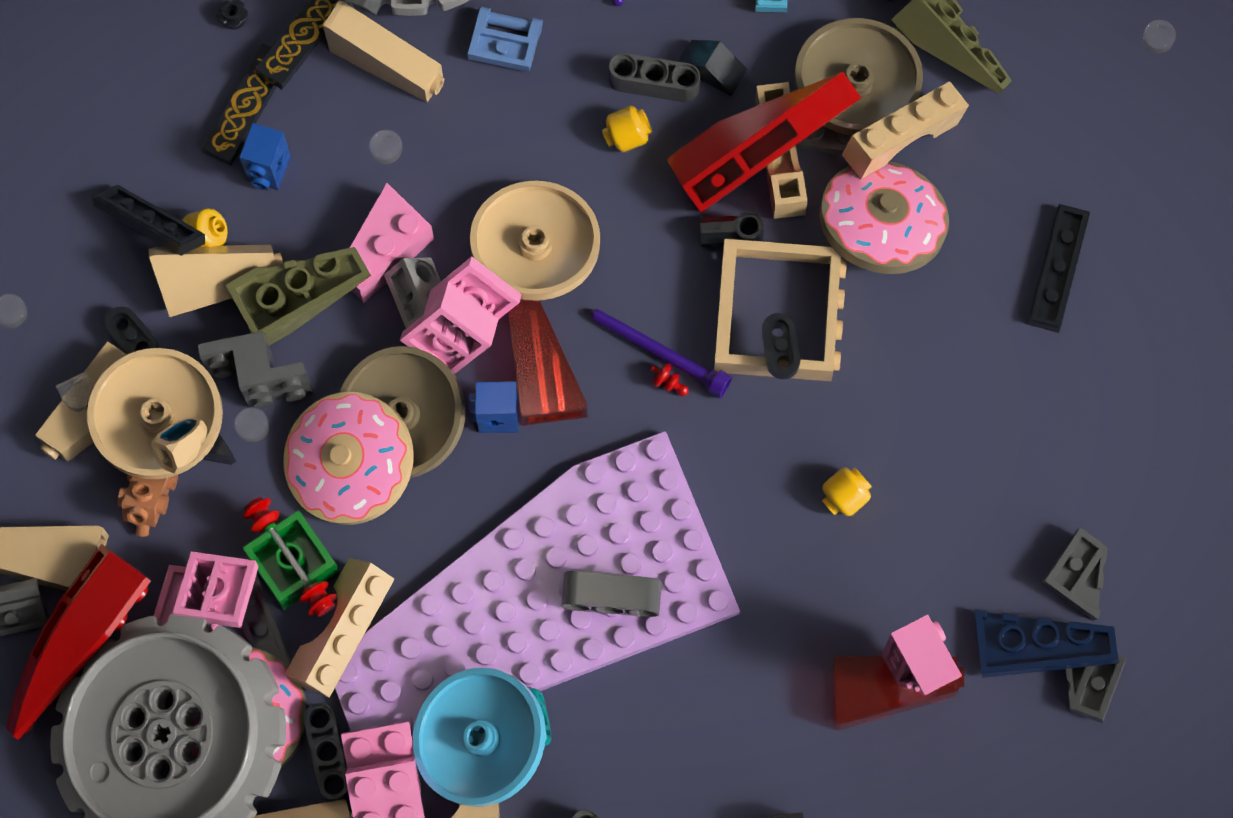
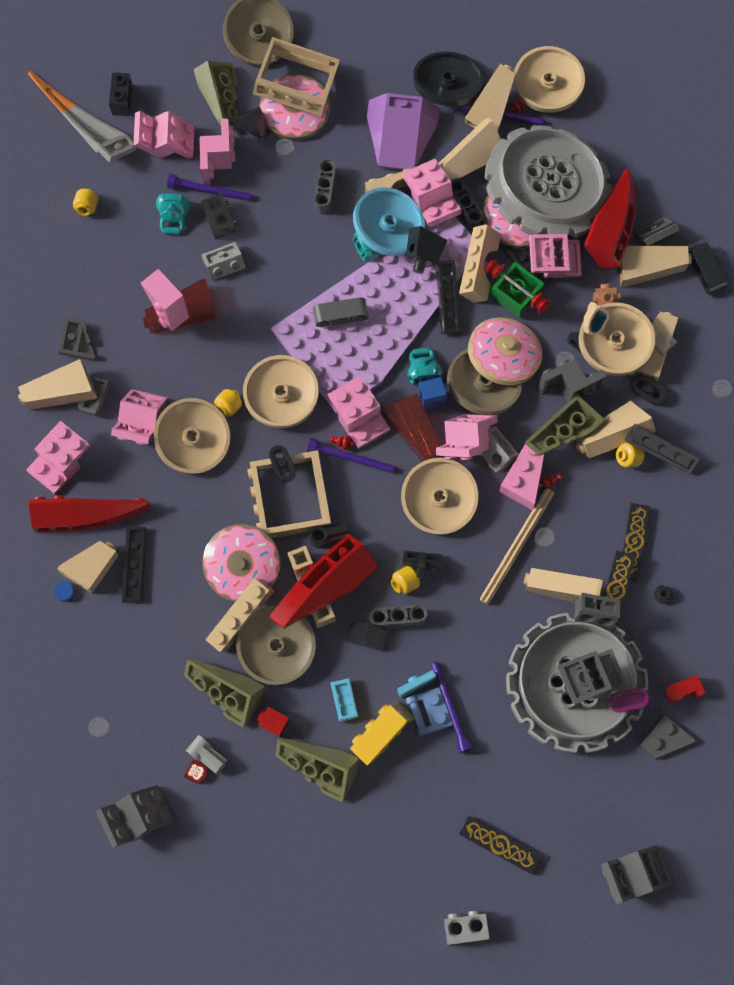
camera: 165 degrees right, 0 degrees up
(265, 157) = (610, 502): blue brick -> none
(344, 230) = (551, 480): none -> red hair
(415, 582) = (448, 297): none -> black tile
(431, 665) = (424, 248): none -> black torso
(435, 141) = (516, 547): none -> tan axle
(494, 466) = (423, 367): none -> teal piece
(503, 47) = (495, 613): medium blue plate -> none
(593, 149) = (422, 561): none -> black hinge
(628, 413) = (359, 412): none -> bright pink bracket
(751, 483) = (280, 391): none -> tan dish
(795, 762) = (223, 261): none -> light grey bracket
(921, 443) = (191, 436): none -> tan dish
(1004, 499) = (138, 416): none -> bright pink bracket
(1036, 645) = (111, 346): dark blue wing -> none
(1130, 362) = (77, 514): none -> red wedge
(1131, 587) = (58, 387): none -> tan slope
(1133, 277) = (90, 565): none -> tan slope
(1156, 464) = (57, 457): none -> bright pink bracket
(1181, 253) = (63, 591): none -> blue tile

